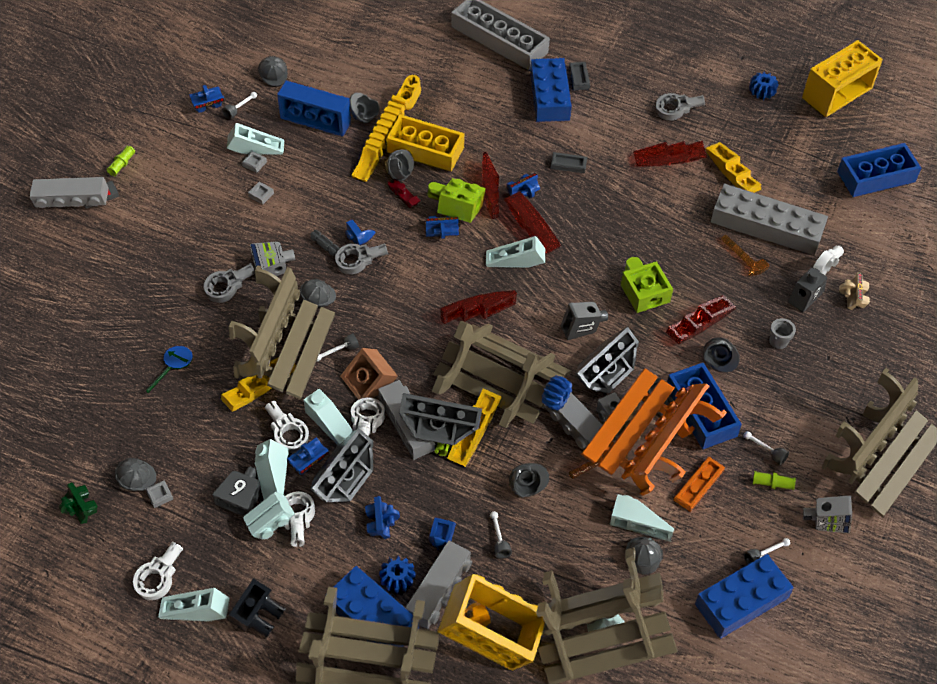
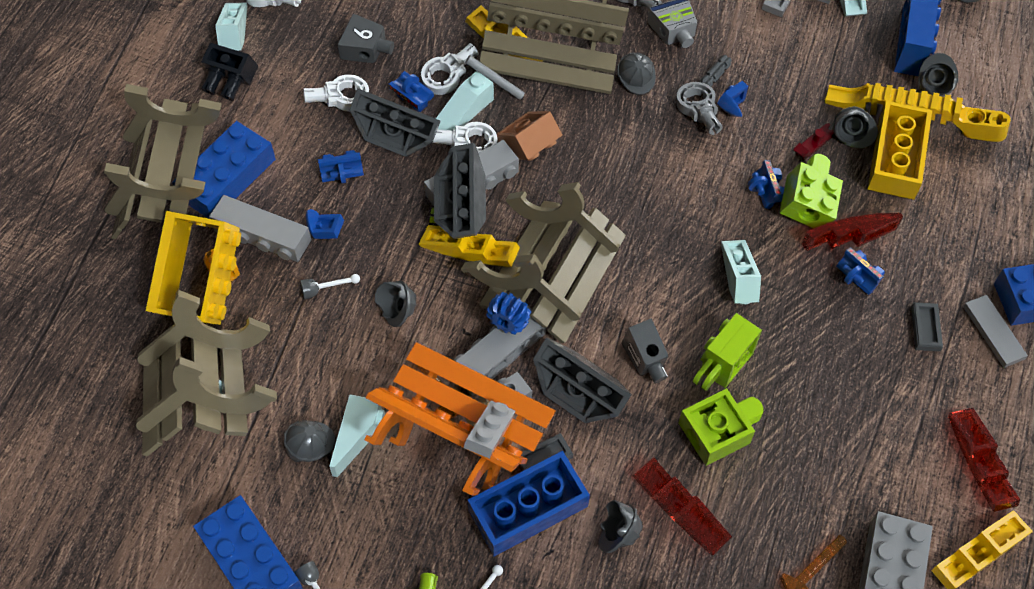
camera: 85 degrees right, 5 degrees up
(268, 516) = (331, 64): light aqua brick -> none
(271, 467) = (392, 60): light aqua slope -> none
(310, 389) = (493, 76): none -> light grey bar
(350, 343) = (573, 113): hinge -> none
(397, 566) = (271, 189): blue gear -> none
(482, 304) = (651, 240): clear red slope -> none
(532, 221) = (800, 284): clear red slope -> none
(575, 128) = (995, 331): none -> light grey tile
(591, 269) = (727, 352): none -> lime brick
(670, 400) = (489, 429): none -> light grey plate
(699, 484) = (416, 508): orange tile -> none

